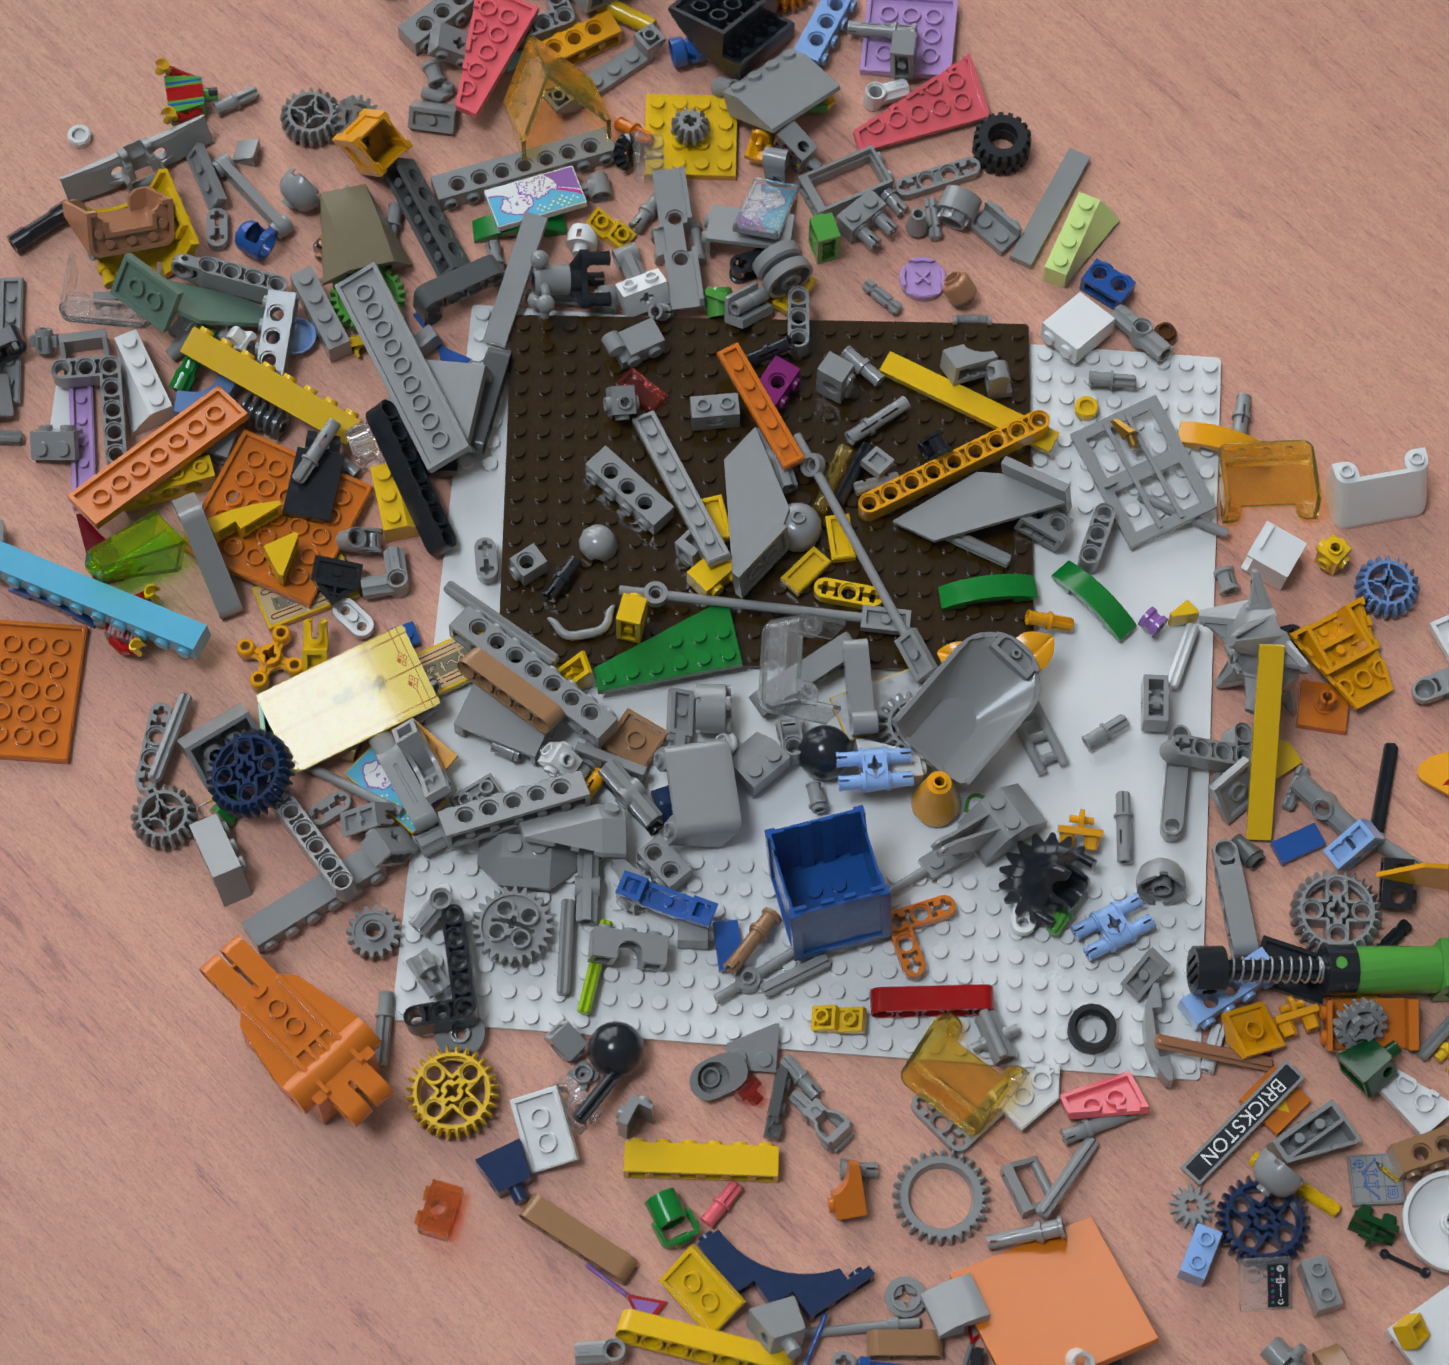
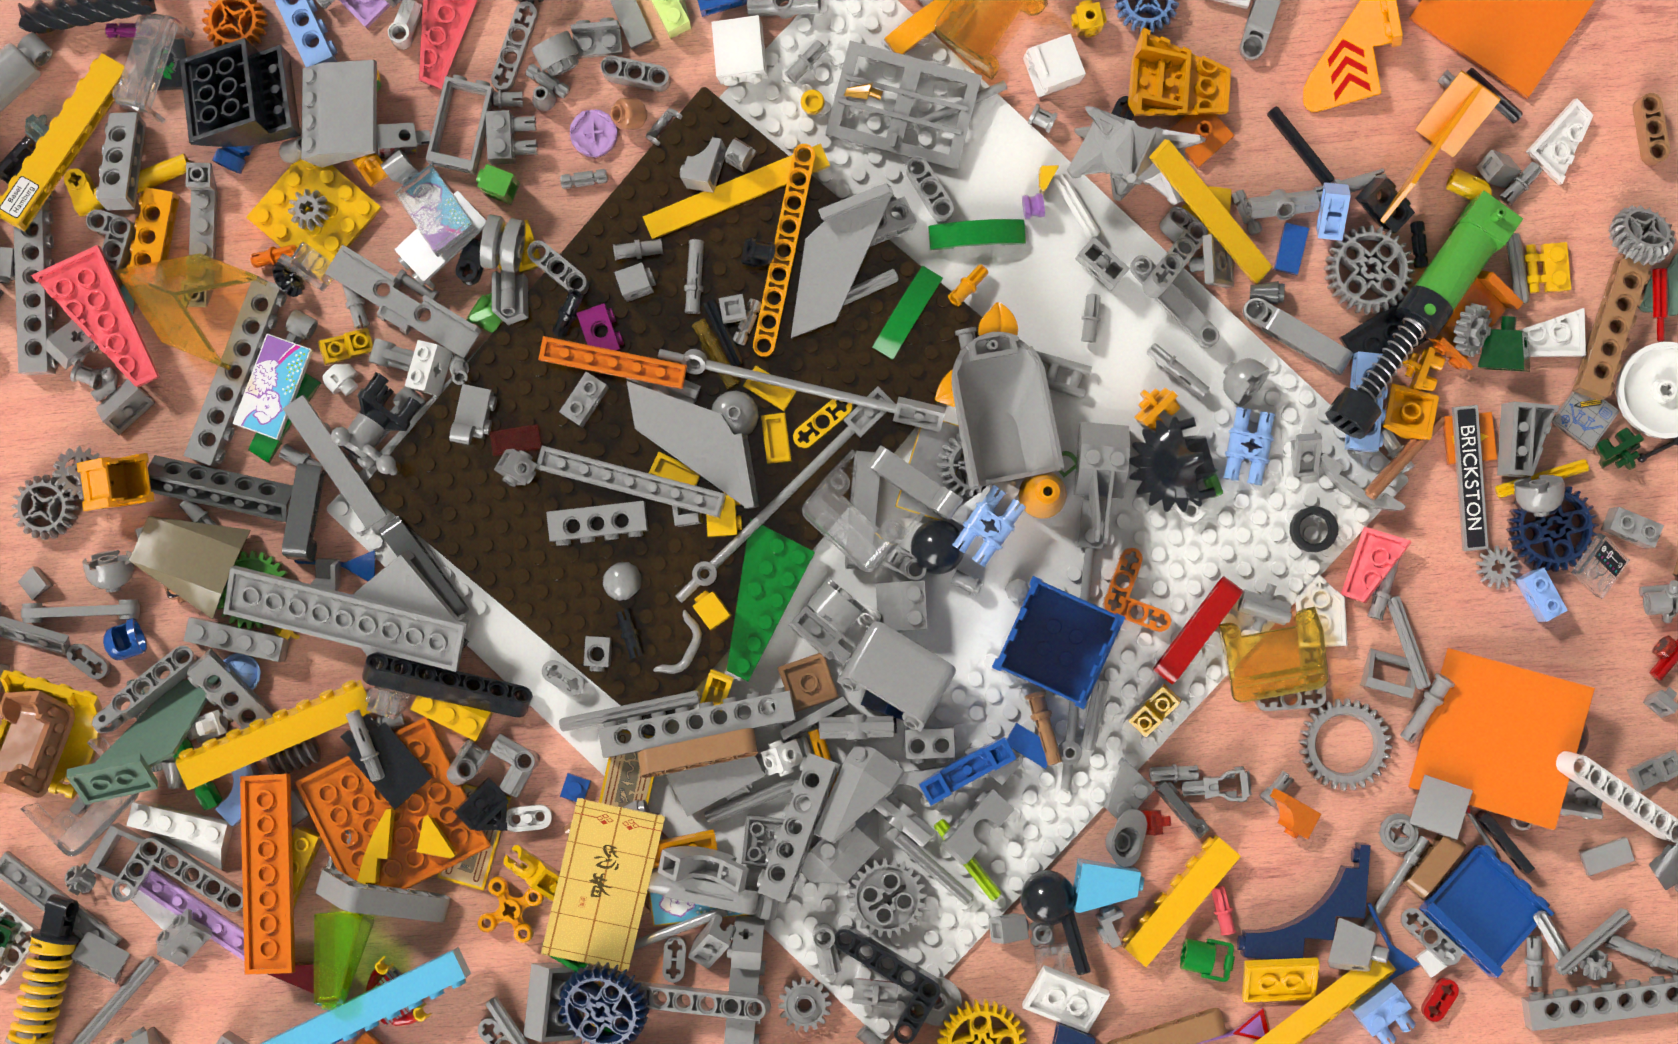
camera: 50 degrees left, 20 degrees up
(498, 764) = (749, 801): none -> light grey axle
(664, 1083) = (1104, 884): none -> medium azure slope
(993, 282) = (625, 66): none -> light grey beam

